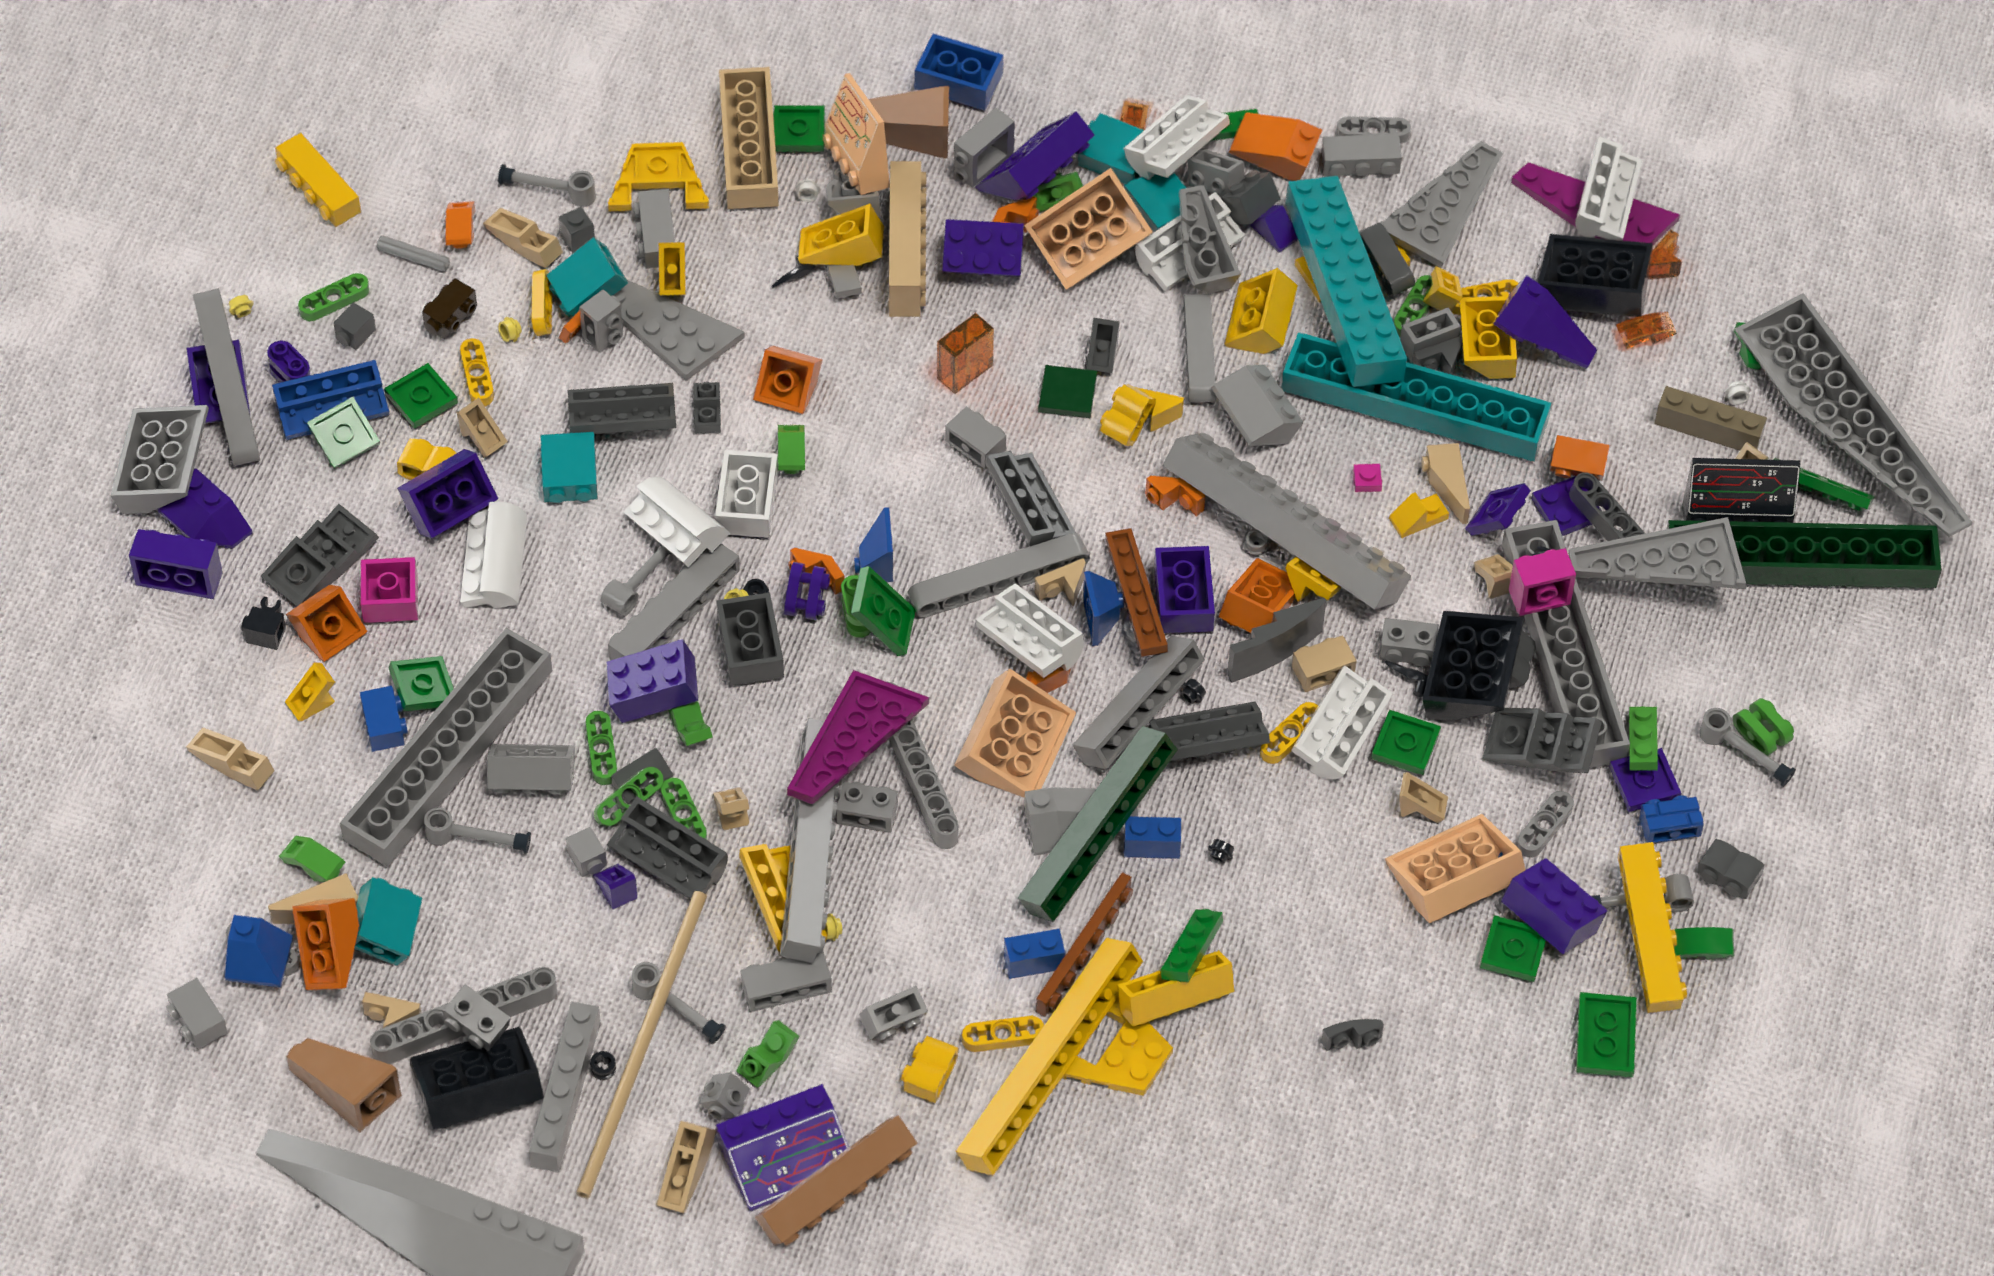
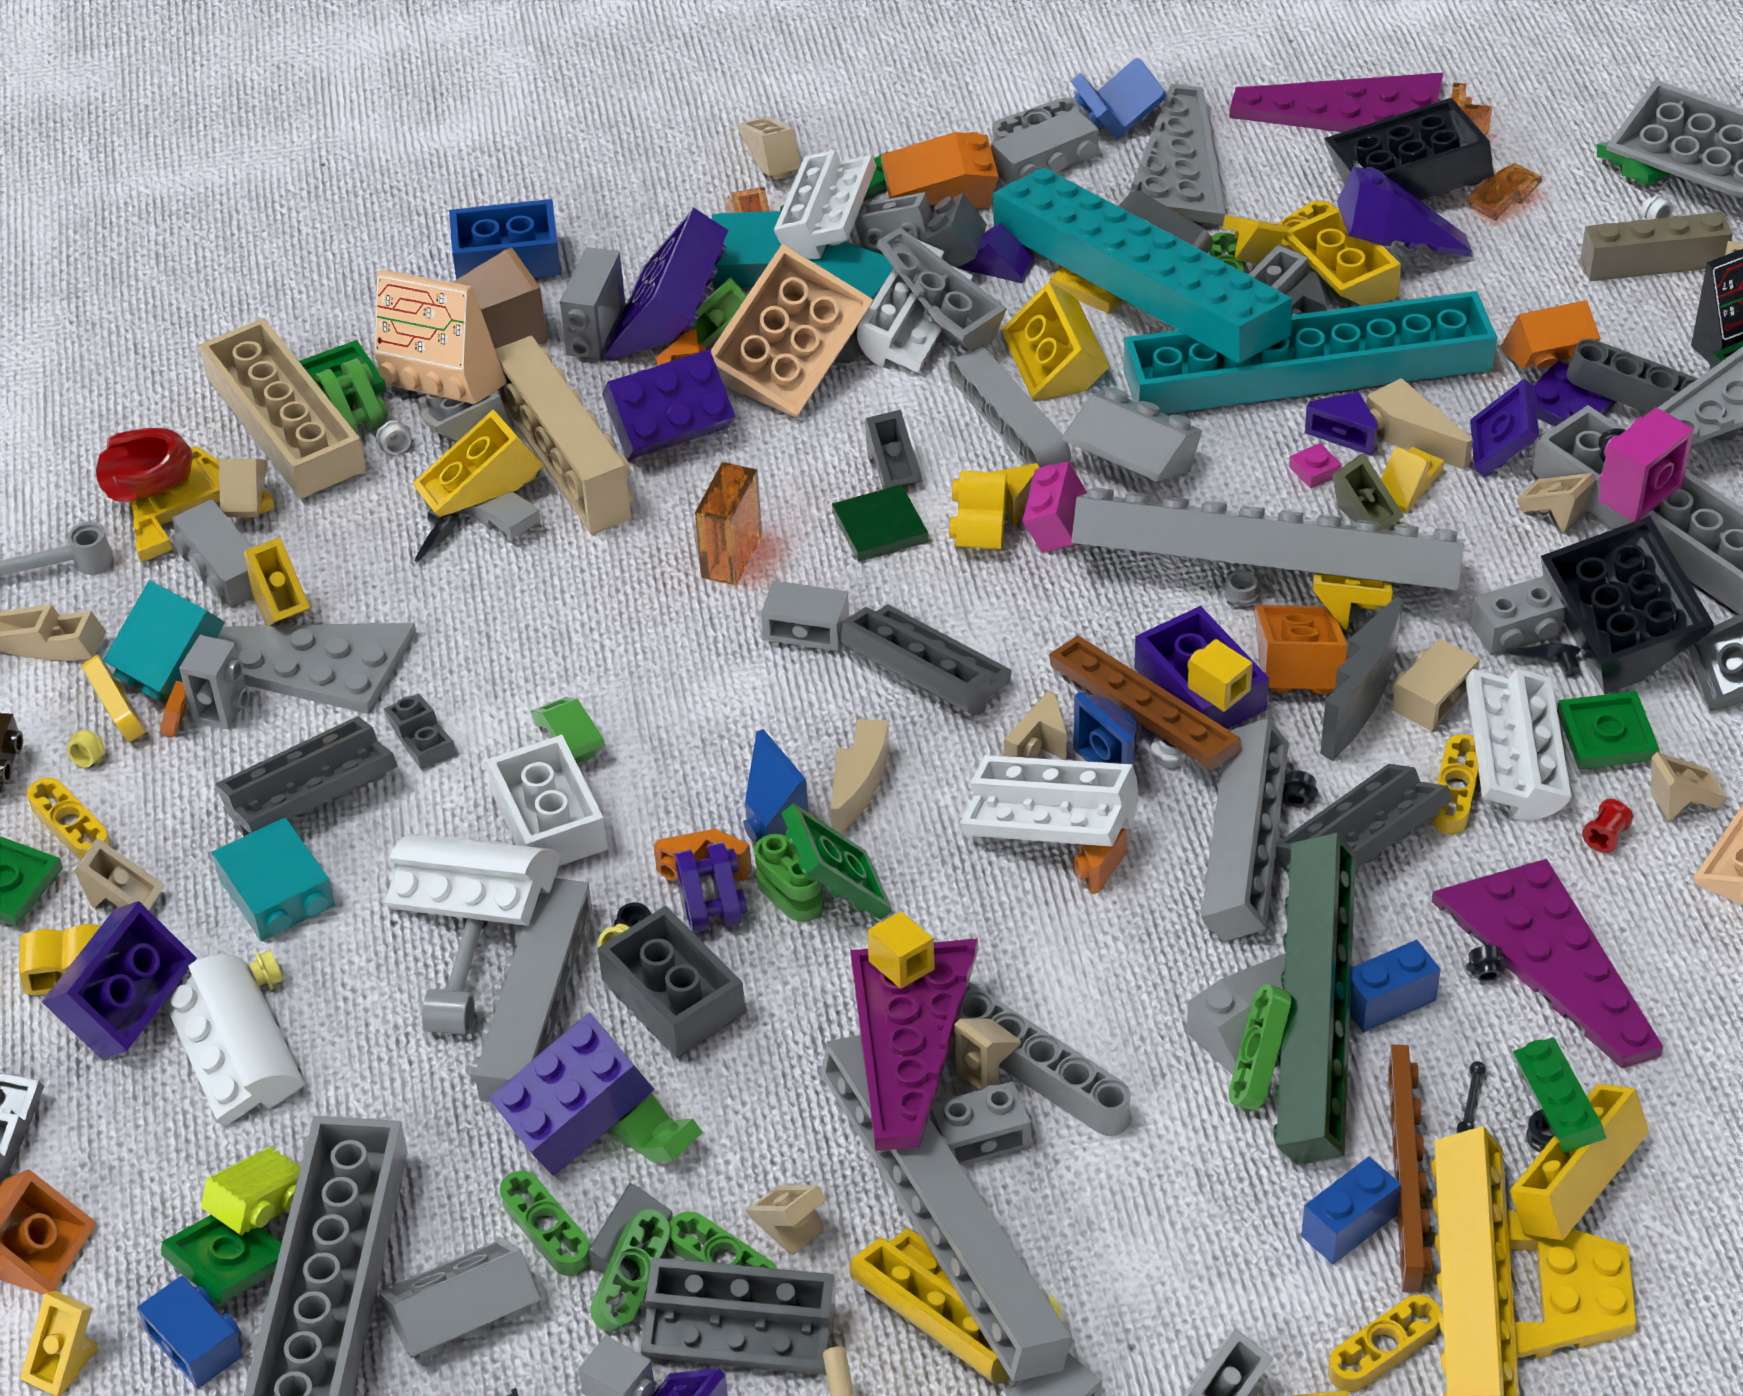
camera: 25 degrees left, 10 degrees down
(389, 589) = (102, 1146): dark pink brick -> none
(453, 654) = (252, 1190): none -> neon yellow brick
(535, 522) = (266, 969): none -> light yellow plate
(576, 228) = (110, 594): dark grey brick -> none
(639, 146) = (143, 463): none -> red hair
(692, 186) = (241, 486): none -> tan slope
(787, 379) = (509, 653): orange slope -> none
(803, 139) = (358, 380): none -> bright green brick
(875, 684) = (900, 949): none -> yellow brick
(893, 763) = (980, 1050): none -> tan slope
(941, 556) = (859, 772): none -> tan slope
(995, 575) = (943, 764): light grey beam -> none
(1015, 735) = (1112, 944): light nougat slope -> none
(1047, 837) = (1259, 1047): none -> bright green beam
(1137, 940) = (1477, 1070): none -> black hinge
(1168, 490) = (1086, 576): orange slope -> none
(1177, 423) = (1052, 506): none -> dark pink brick
(1180, 599) = (1219, 675): none -> yellow brick
(1181, 68) = (771, 146): none -> tan slope
(1266, 855) = (1555, 953): none -> magenta wing
(1356, 802) = (1604, 830): none -> red bush
(1375, 516) = (1363, 494): none -> olive slope
(1404, 455) = (1343, 421): none -> dark purple slope
(1438, 139) = (1122, 99): none -> bracket
(1608, 191) = (1357, 70): white brick -> none

